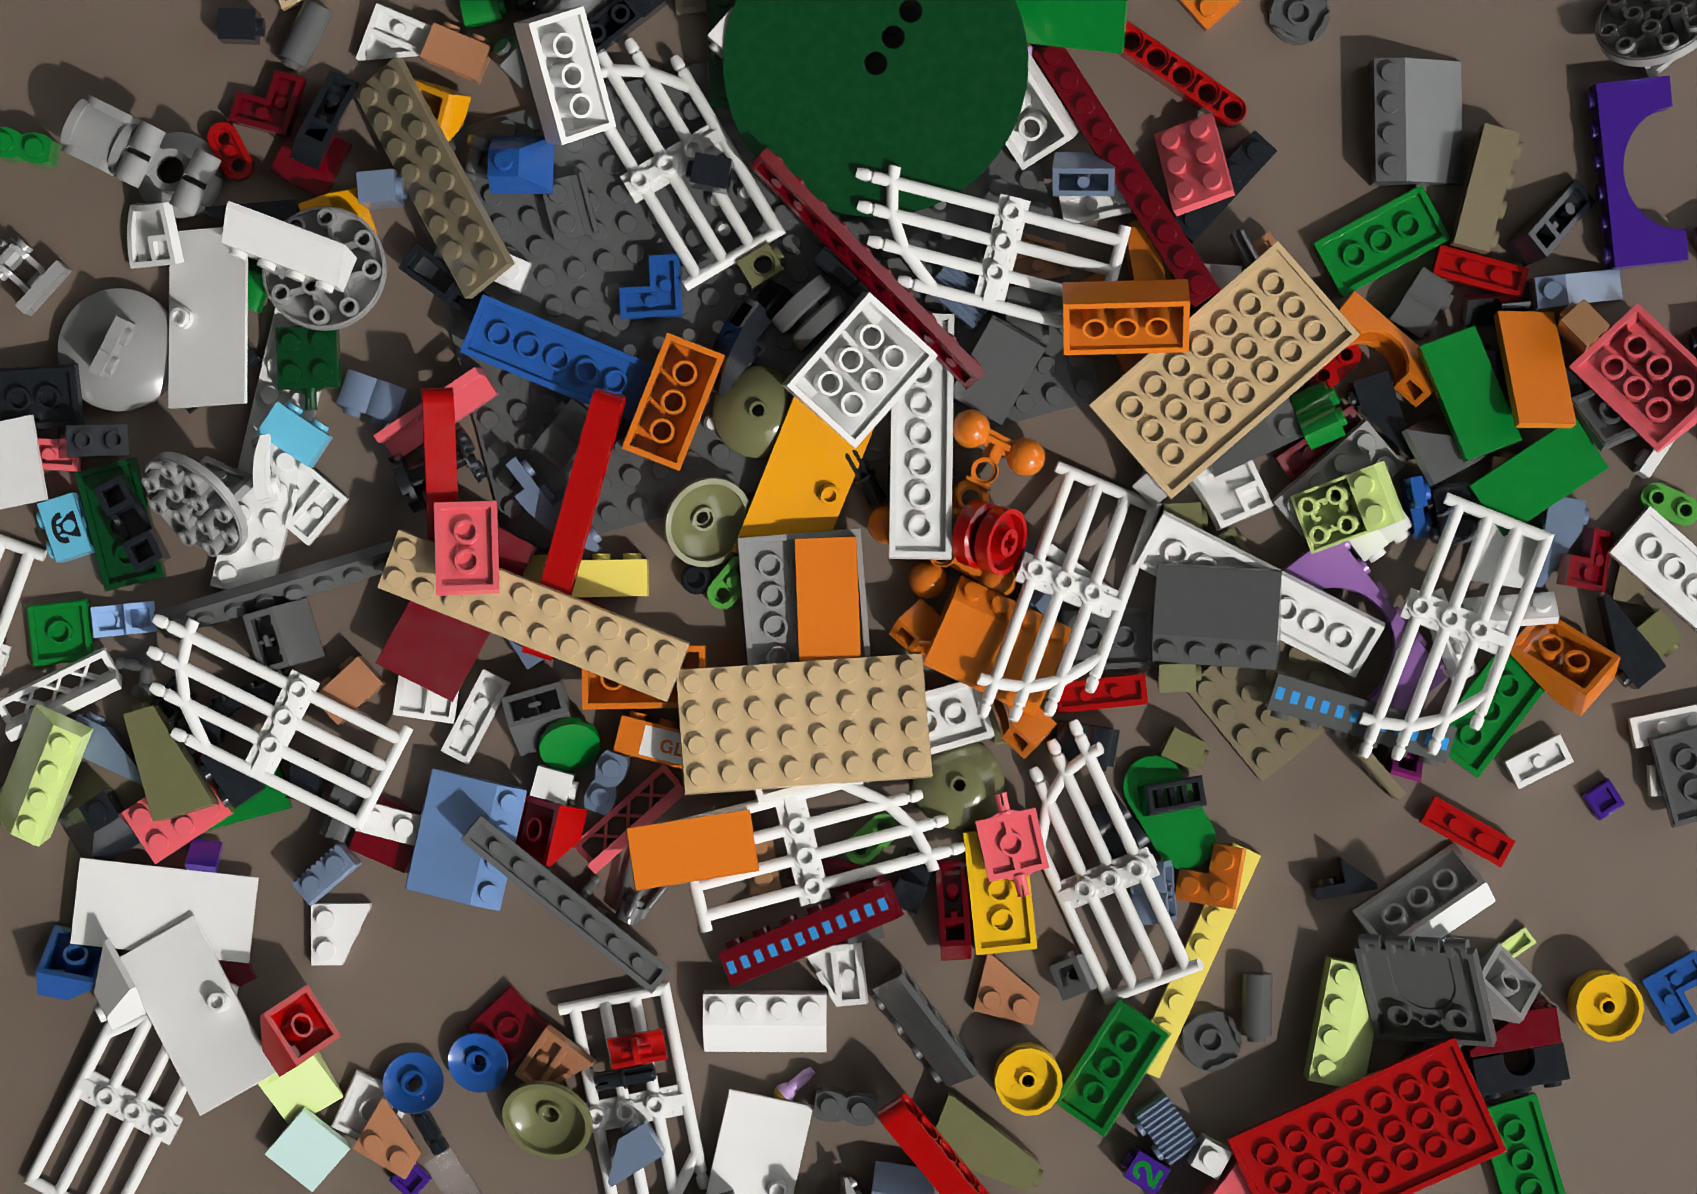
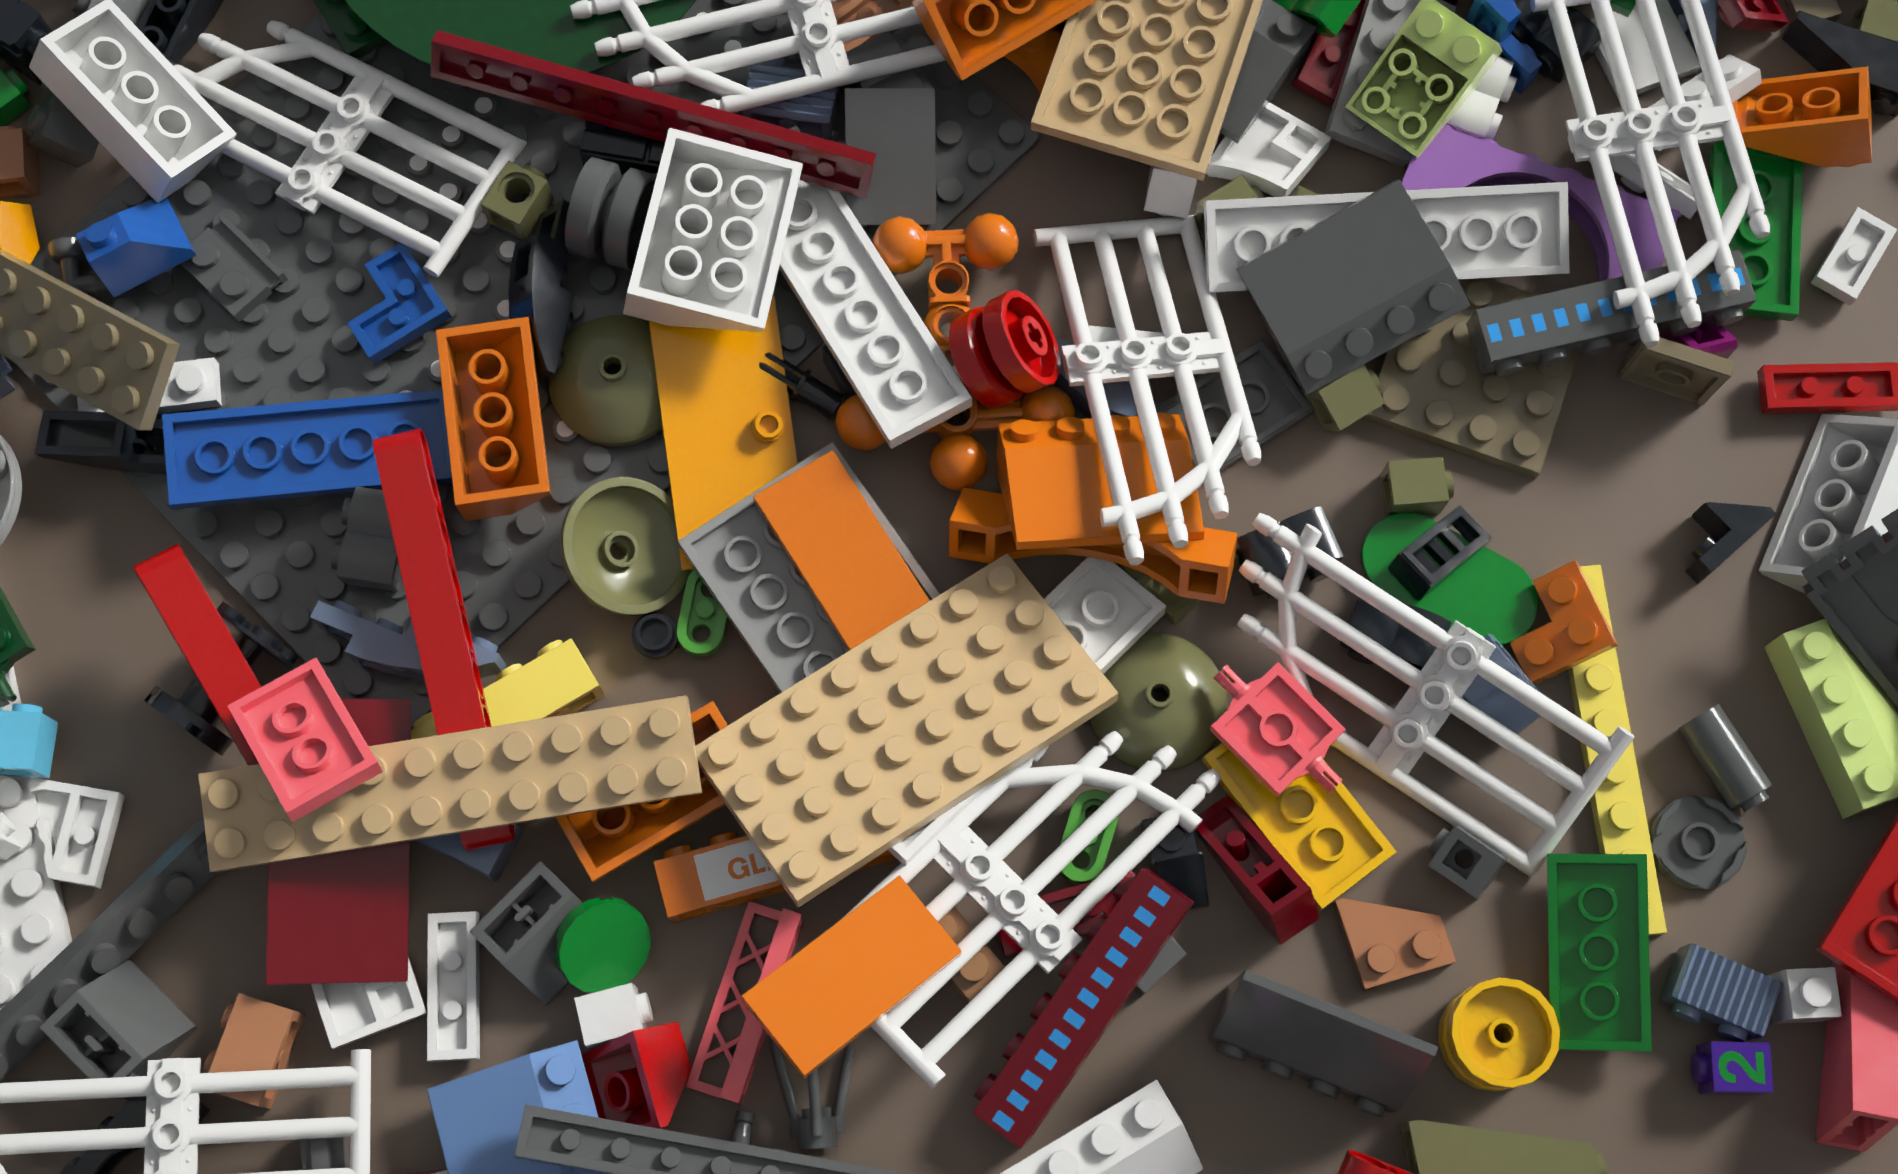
camera: 30 degrees left, 15 degrees down
(372, 397) = (88, 643): sand blue brick -> none
(406, 432) = (153, 655): coral fence -> none
(609, 773) = (683, 954): sand blue brick -> none
(710, 173) = (386, 116): black brick -> none
(842, 973) = (1157, 1042): white wing -> none
(1110, 693) = (1278, 474): red plate -> none

